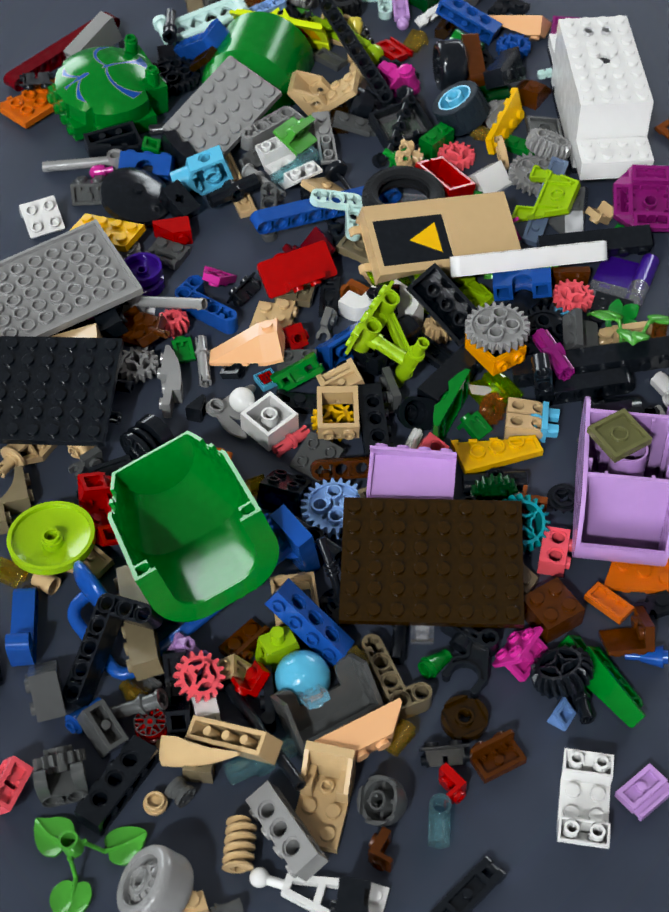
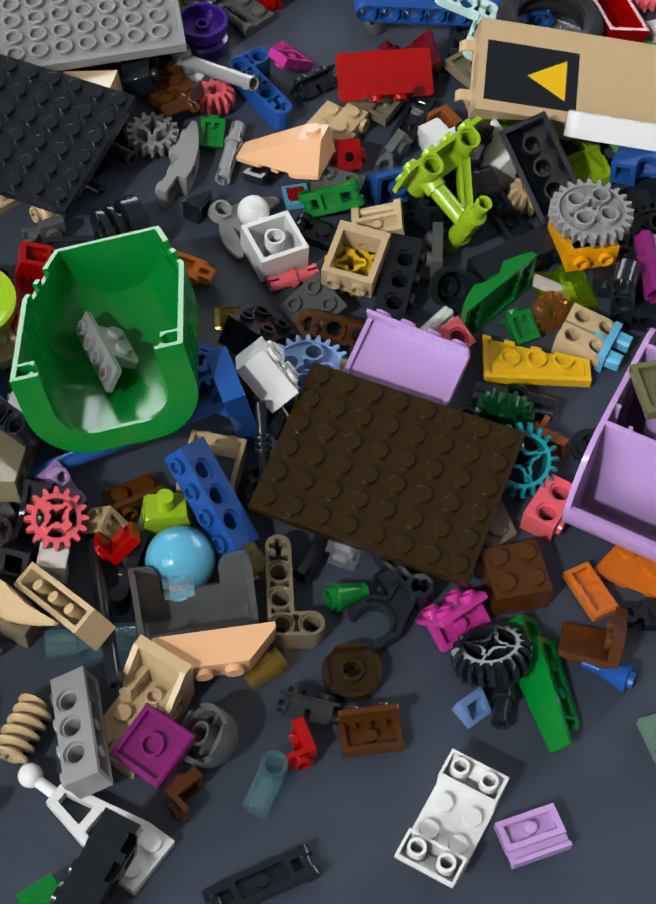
camera: 15 degrees right, 5 degrees up
(181, 537) = (106, 349): none -> light grey bracket
(316, 515) = (267, 373): none -> white brick
(346, 822) = (153, 746): none -> magenta plate

